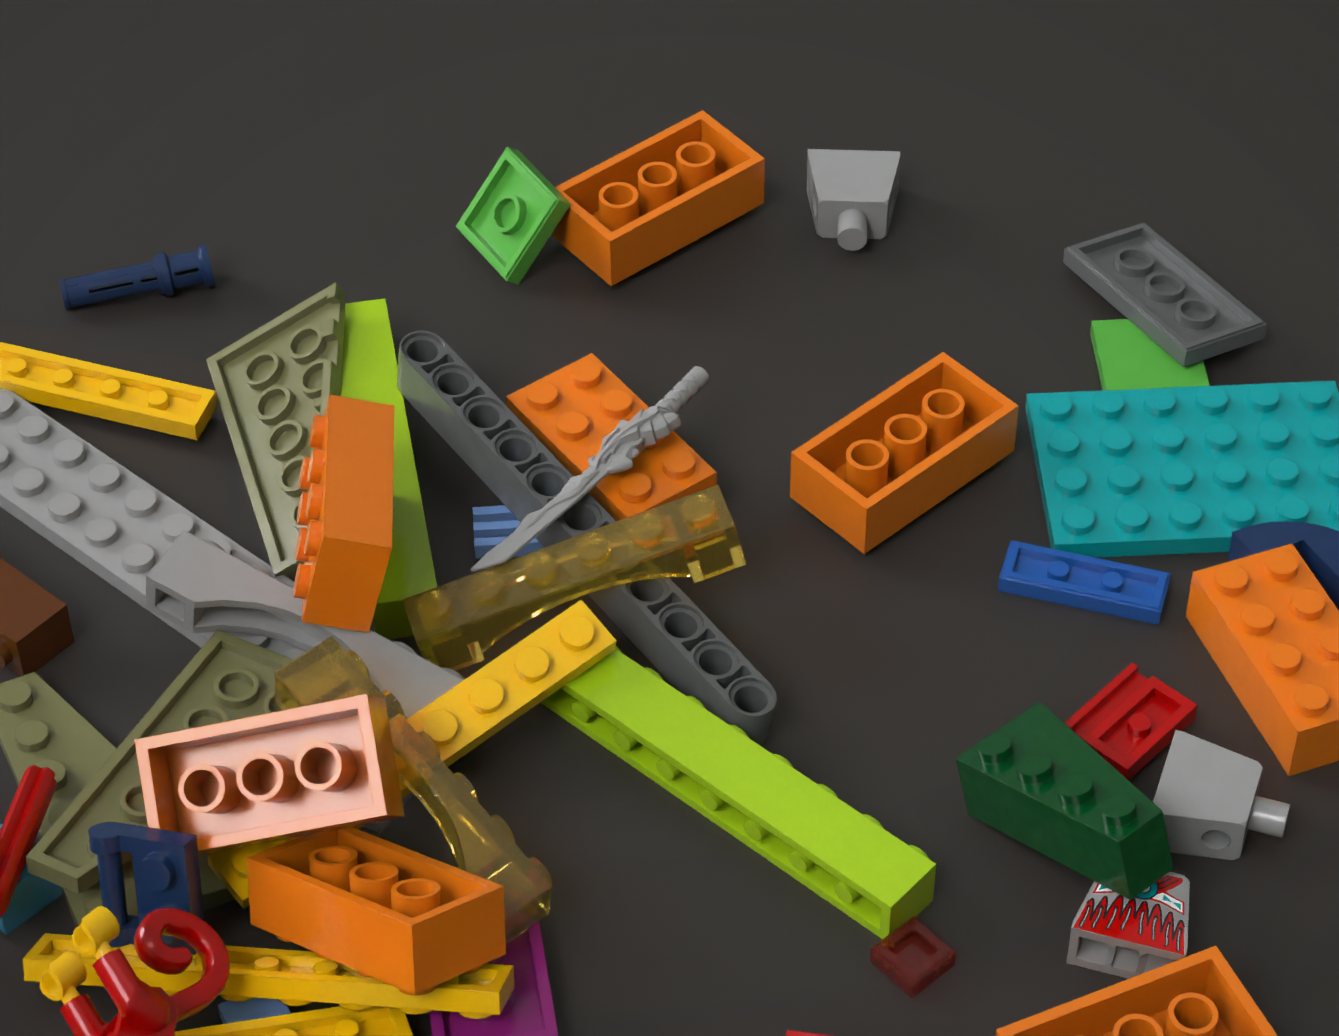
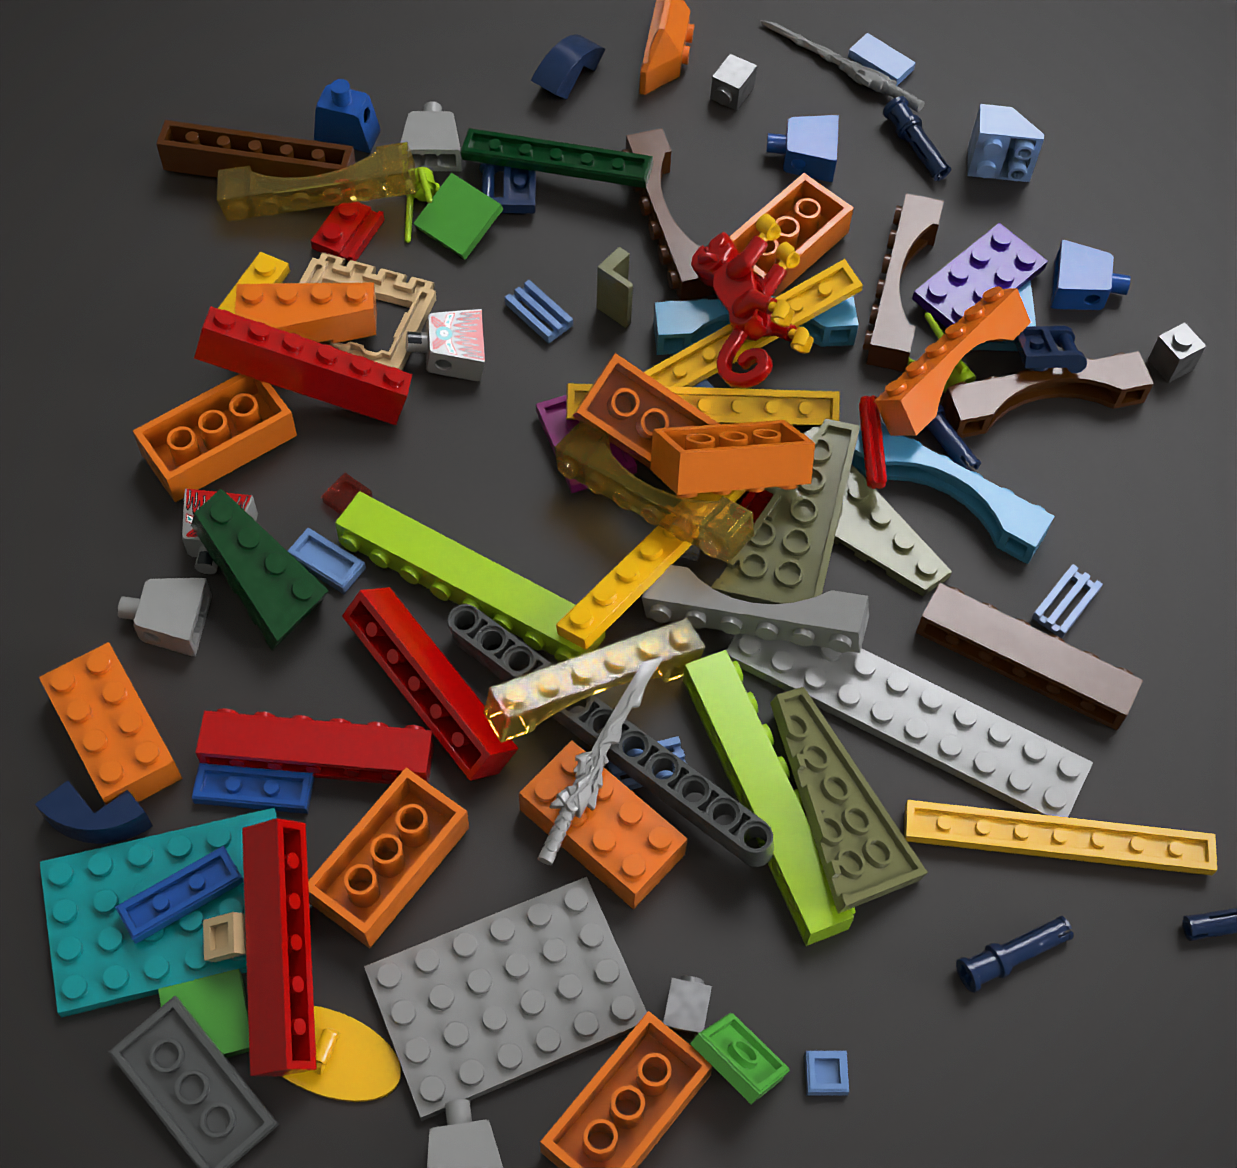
camera: 165 degrees right, 15 degrees up
(163, 874) = (775, 407): dark blue plate -> none
(345, 513) = (752, 654): orange brick -> none
(414, 221) = (826, 1073): none -> medium blue tile
(560, 277) = (687, 1006): none -> flat silver brick
(774, 330) = (505, 997): none -> light grey plate
(825, 650) = (428, 682): none -> red brick
(963, 863) = (327, 560): none -> medium blue tile
(991, 596) = (313, 746): none -> red brick
(1003, 319) = (350, 1061): none -> yellow shield
(1053, 363) = (278, 949): none -> red brick
(1122, 387) = (224, 937): none -> tan plate
(1132, 720) = (220, 667): red plate -> none
(1182, 451) = (179, 894): none -> blue tile

